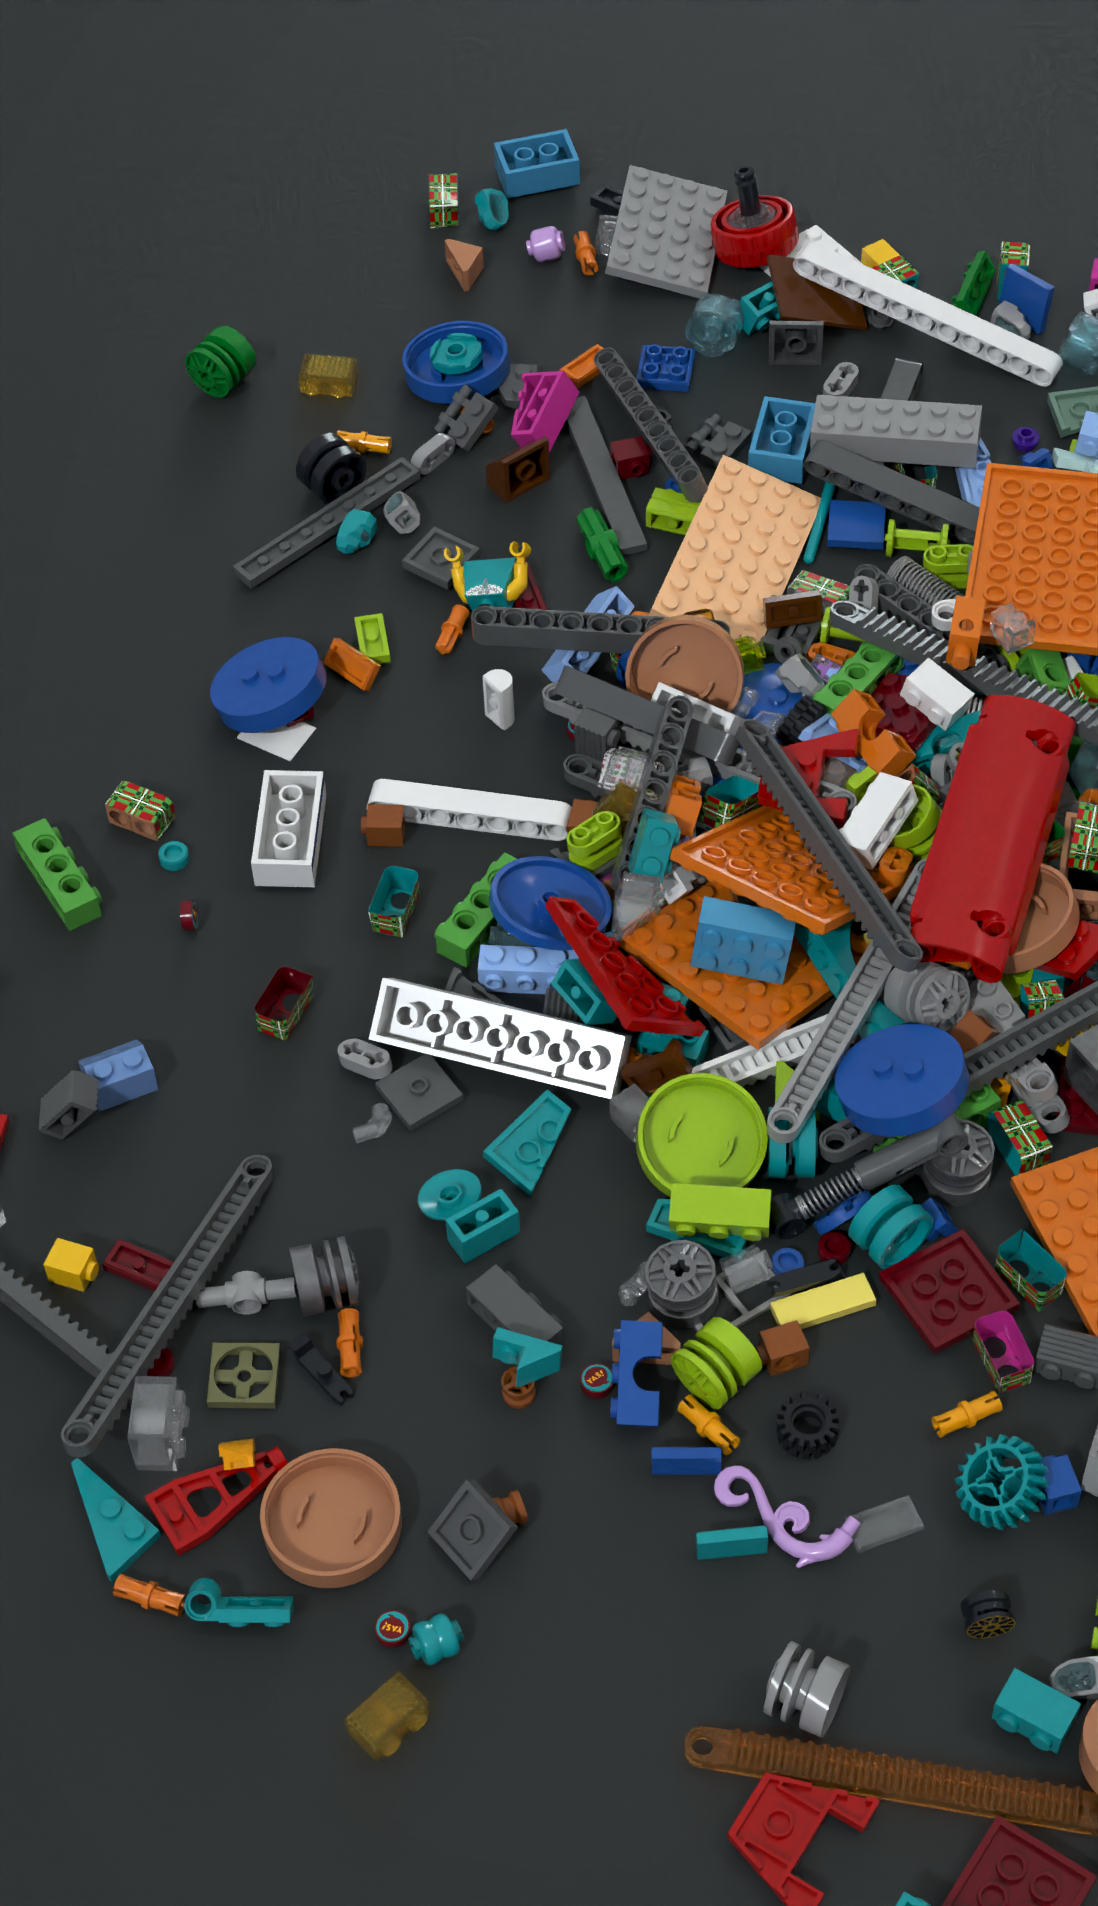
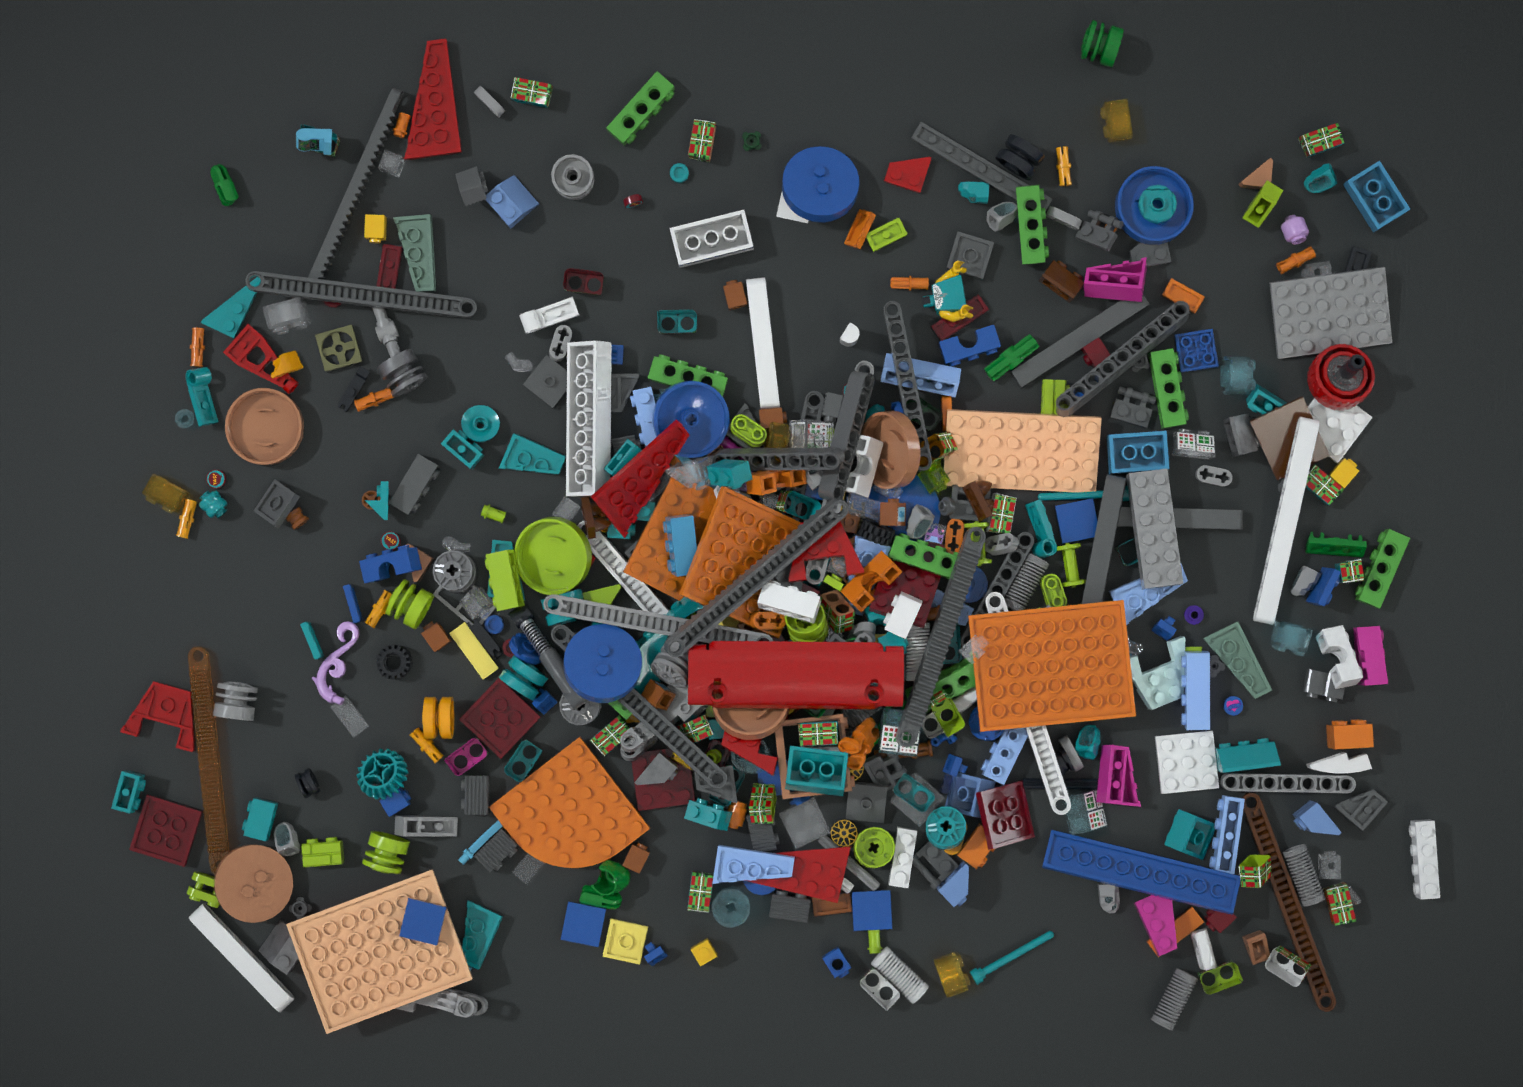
camera: 75 degrees right, 35 degrees up
(117, 977) = (569, 166): none -> light grey wheel
(119, 1212) = (418, 246): none -> sand green wing
(168, 759) = (751, 136): none -> dark green plate
(263, 1642) = (178, 418): none -> clear light blue plate
(298, 601) = (908, 173): none -> red wing
(315, 1061) = (549, 315): none -> white plate
(426, 478) = (1029, 254): none -> bright green brick
(446, 1696) = (186, 518): none -> light orange pin
(501, 255) = (1262, 204): none -> lime brick
(567, 568) = (986, 343): none -> blue arch
(598, 1223) = (493, 513): none -> lime pin
(701, 398) = (1167, 418): none -> bright green brick
(777, 696) = (892, 513): none -> dark orange brick
(797, 378) = (1193, 445): none -> slope
(843, 560) = (1042, 529): none -> teal plate
(925, 1368) = (438, 716): none -> light orange wheel
(964, 644) = (960, 622): orange torso -> none
(1046, 260) = (1398, 544): none -> bright green brick

